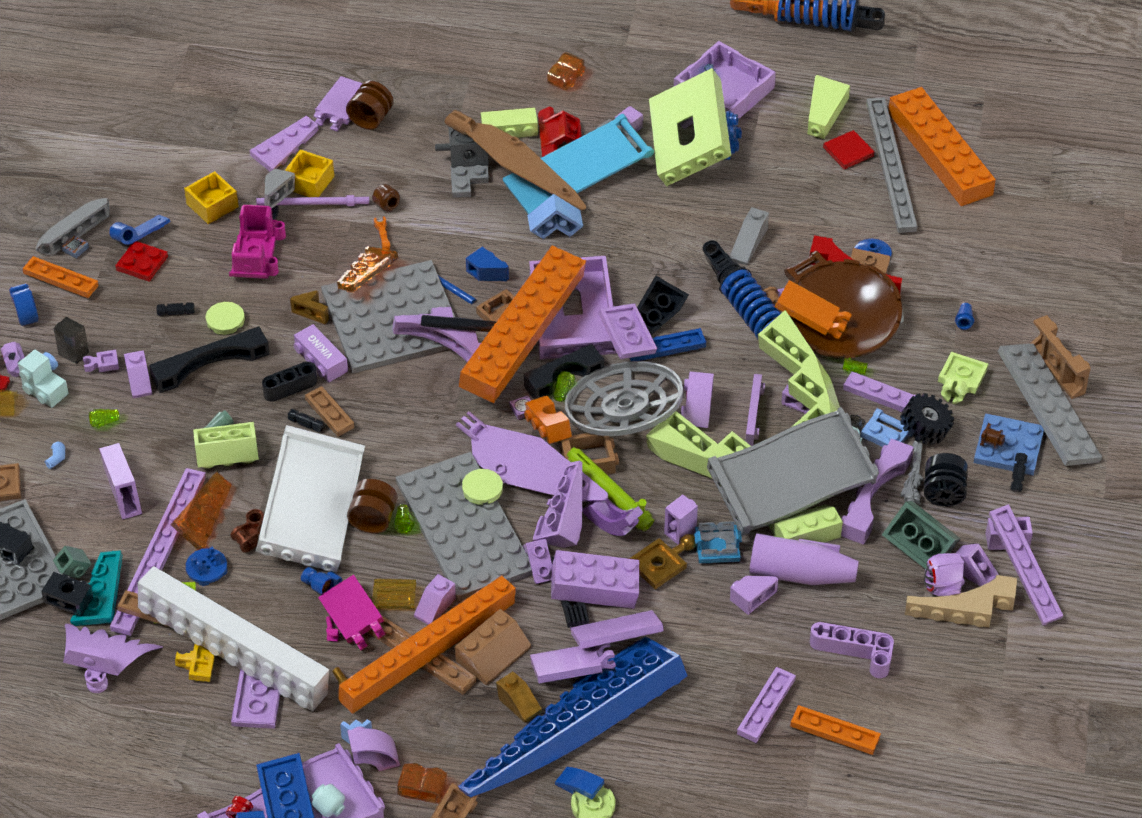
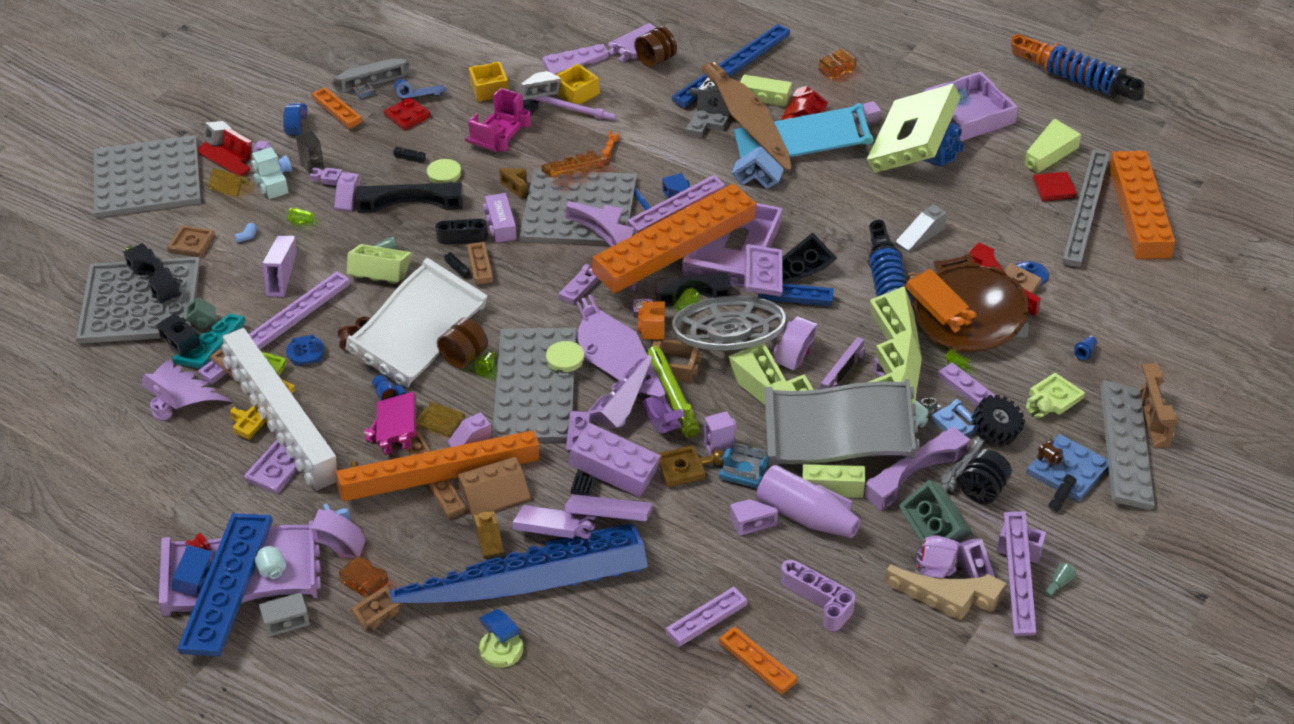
camera: 25 degrees right, 5 degrees down
(202, 511) = (325, 308): clear orange wing -> none
(386, 197) = (628, 118): reddish brown head -> none
(445, 402) = (578, 285): none -> lavender plate
(457, 101) = (737, 61): none -> blue plate
(457, 323) = (614, 220): black axle -> none
(501, 281) = (676, 203): none -> lavender plate
(1058, 552) = (1062, 576): none -> sand green cone

